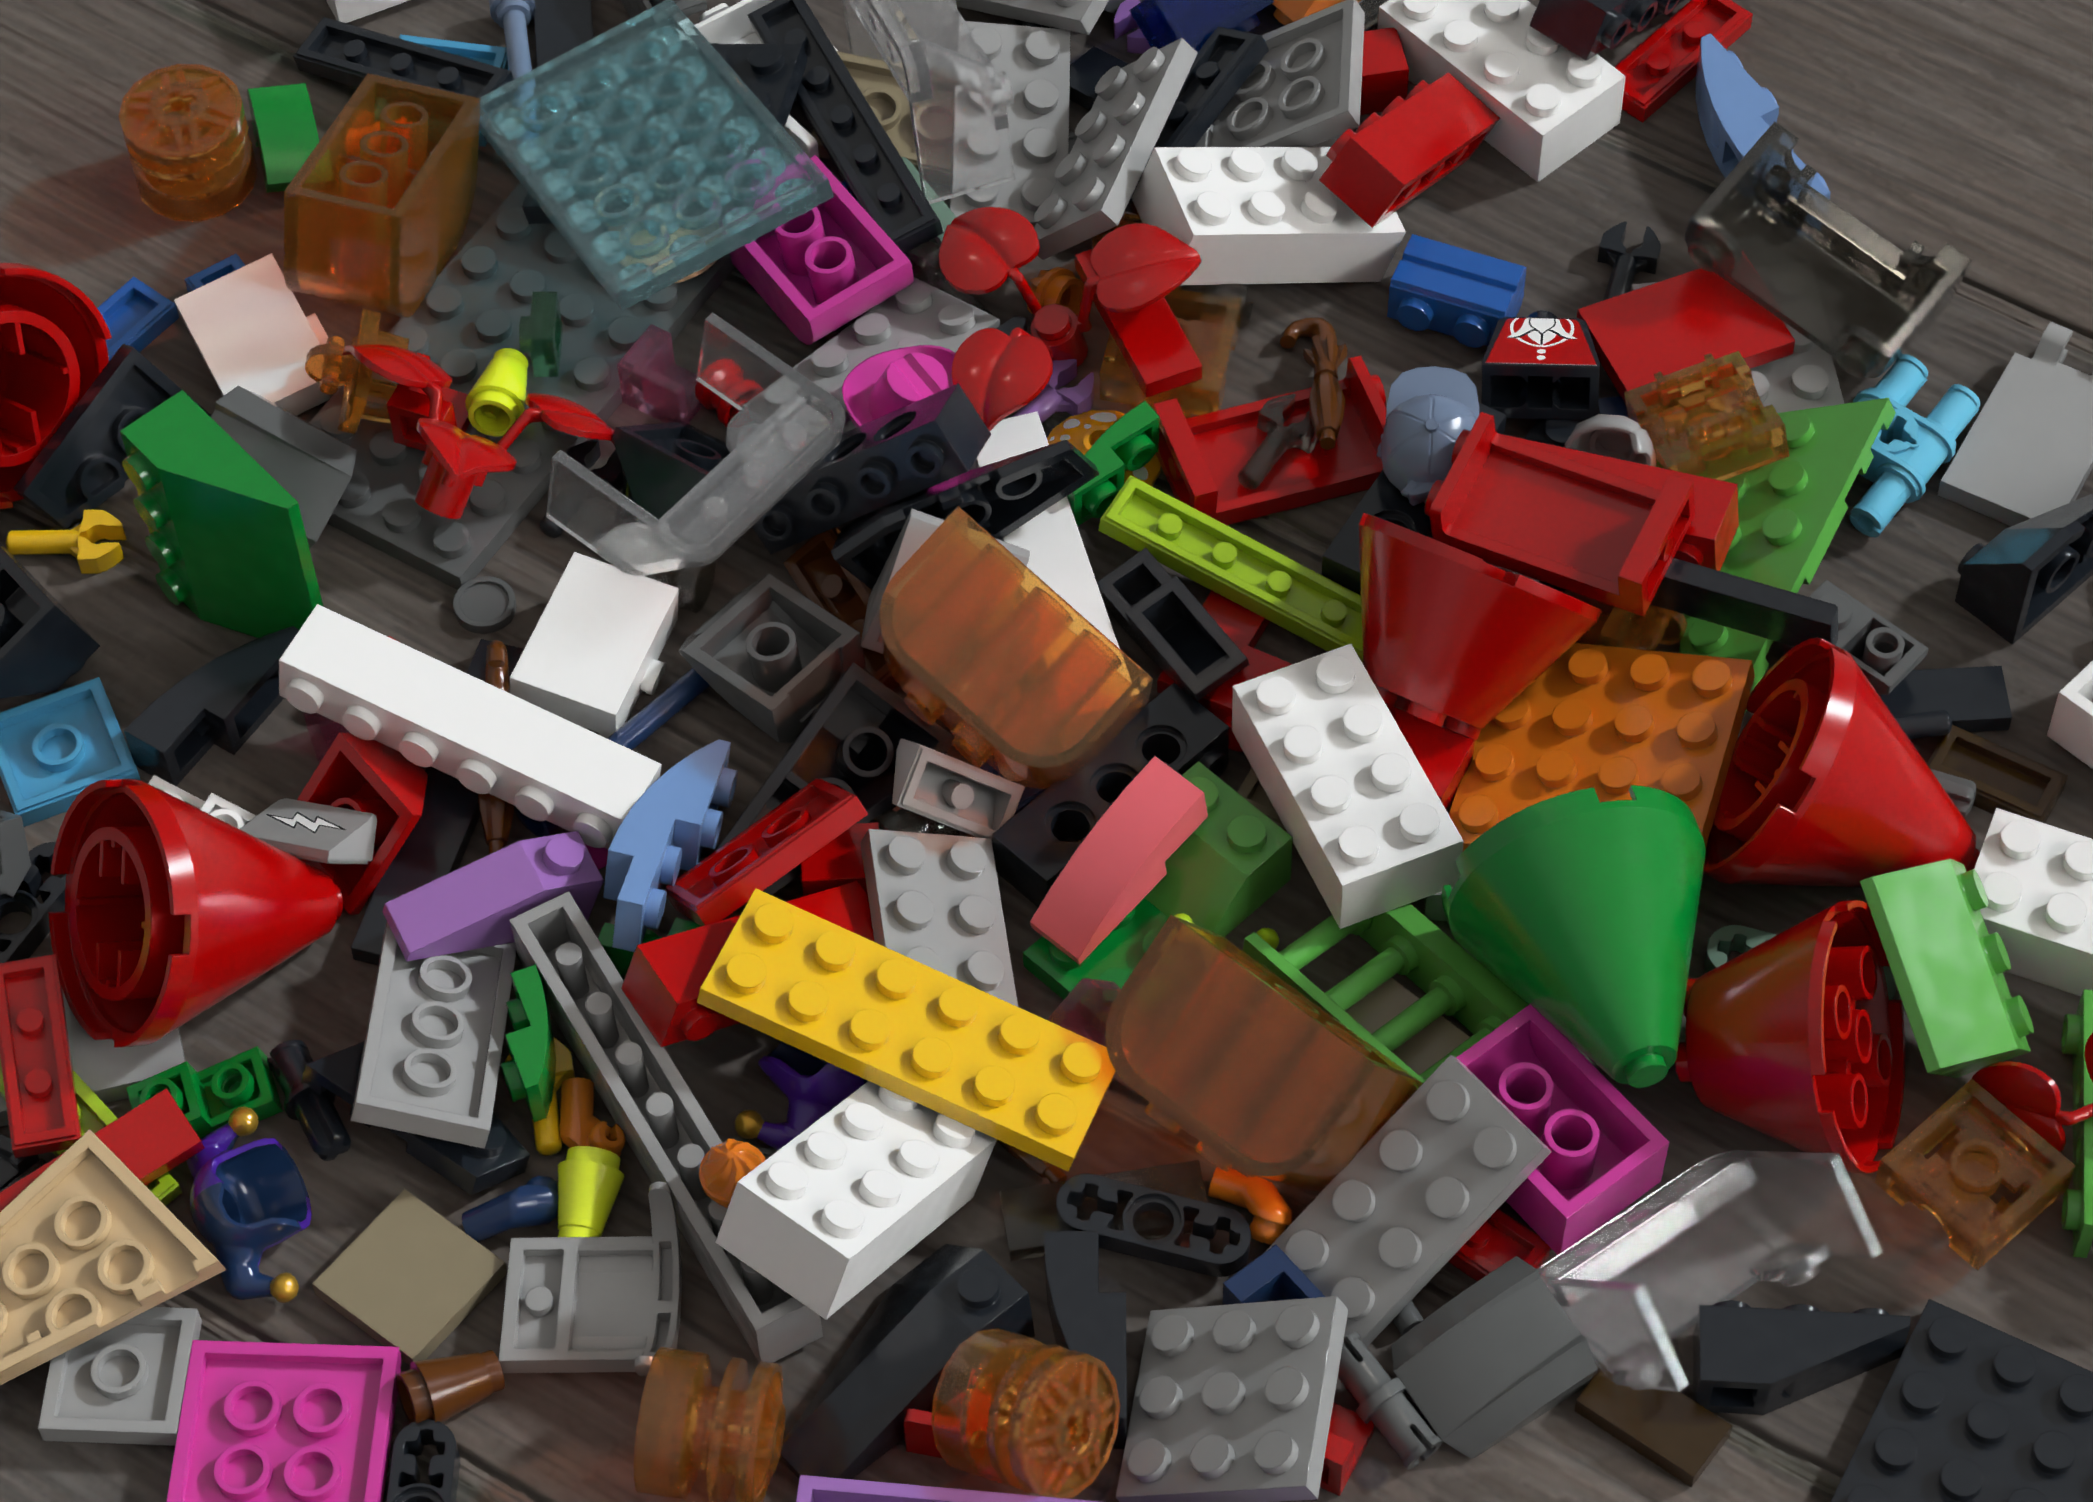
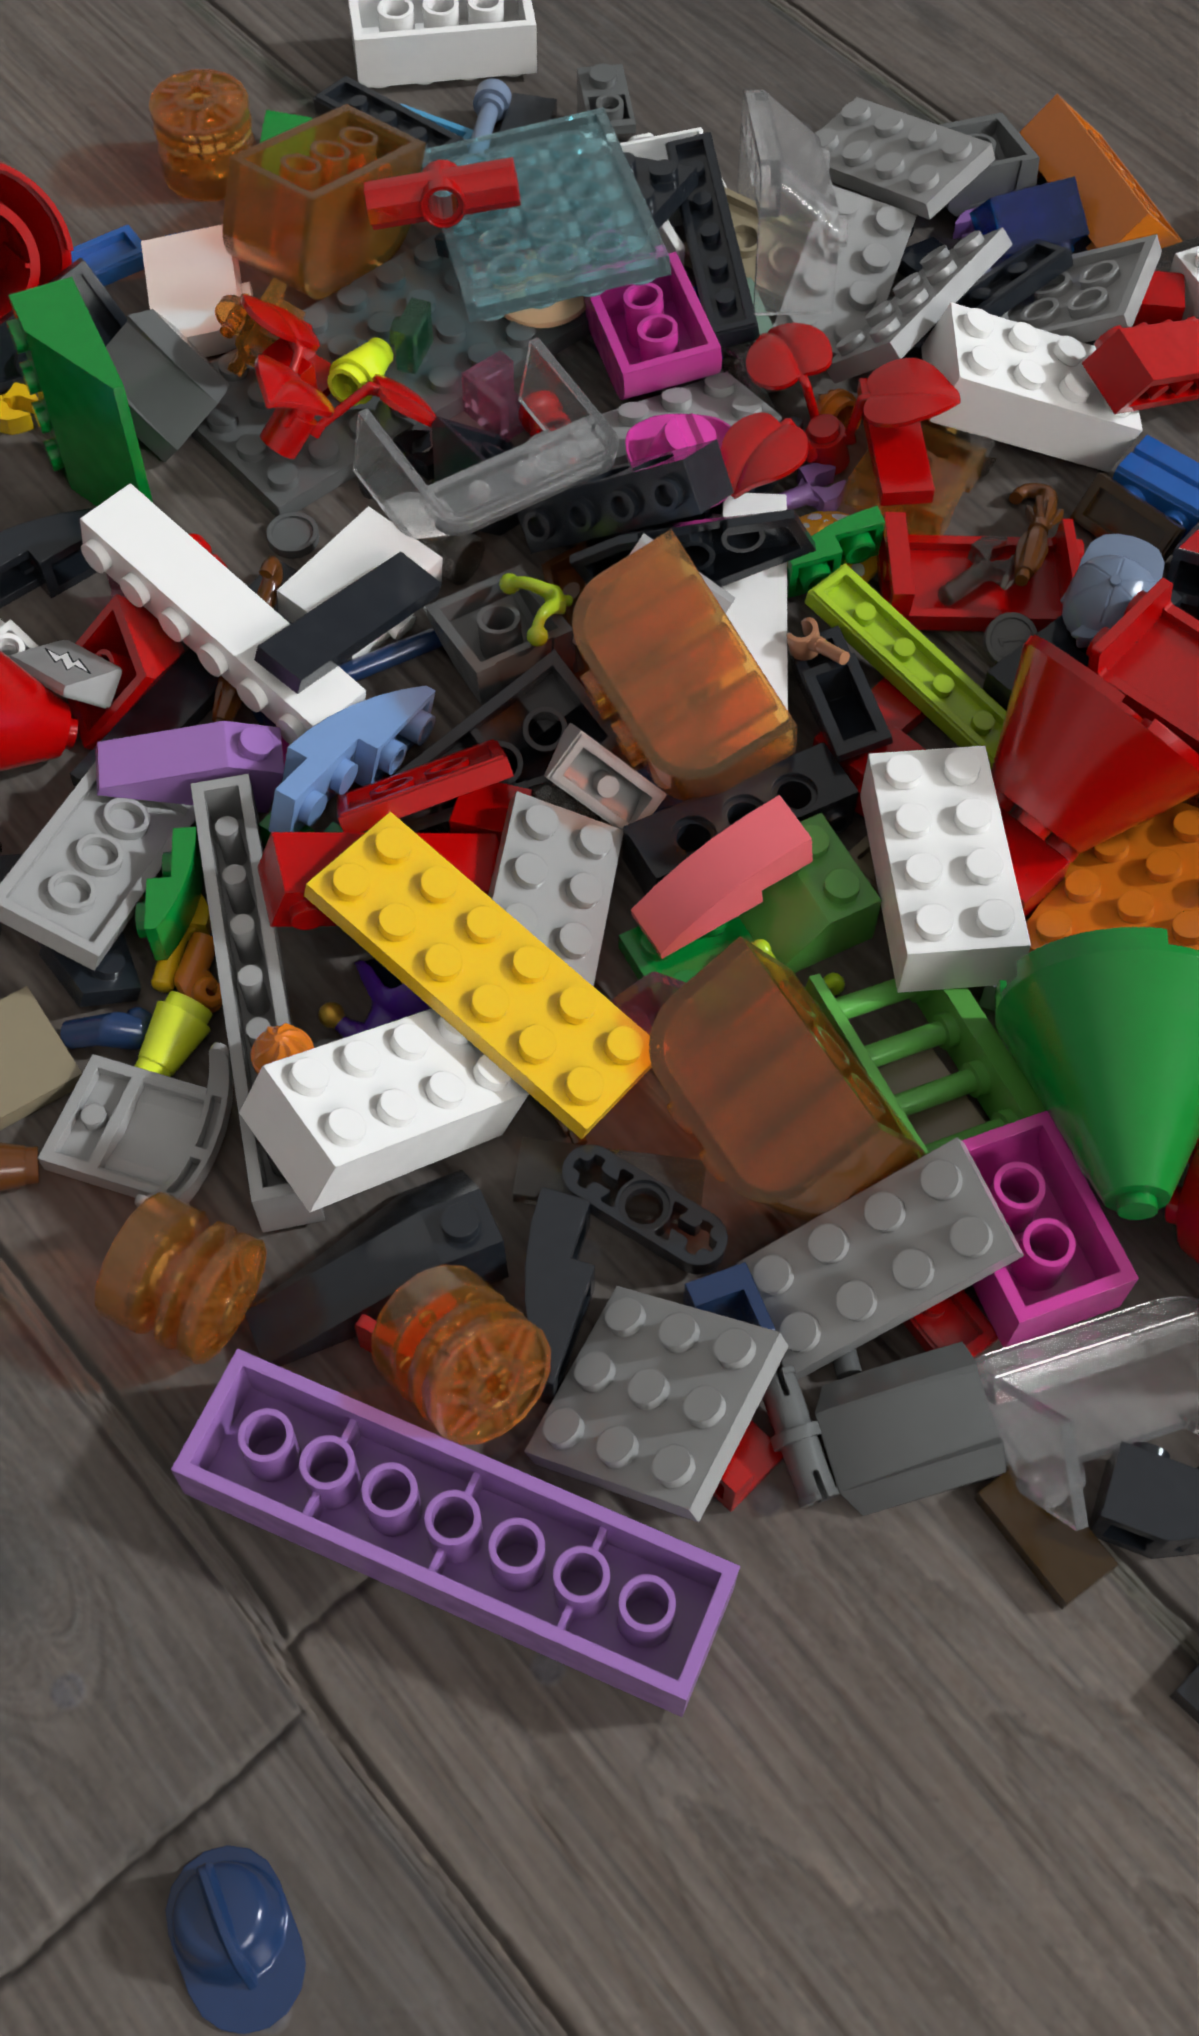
camera: 15 degrees right, 5 degrees up
(533, 162) = (411, 197): none -> red piece
(614, 693) = (347, 622): none -> black tile
(826, 603) = (554, 602): none -> lime piece
(1128, 577) = (813, 644): none -> nougat hand
(1256, 1195) = (751, 1218): orange arm -> none
(1330, 506) = (1007, 634): none -> dark grey piece
(1417, 337) = (1116, 510): none -> dark brown tile

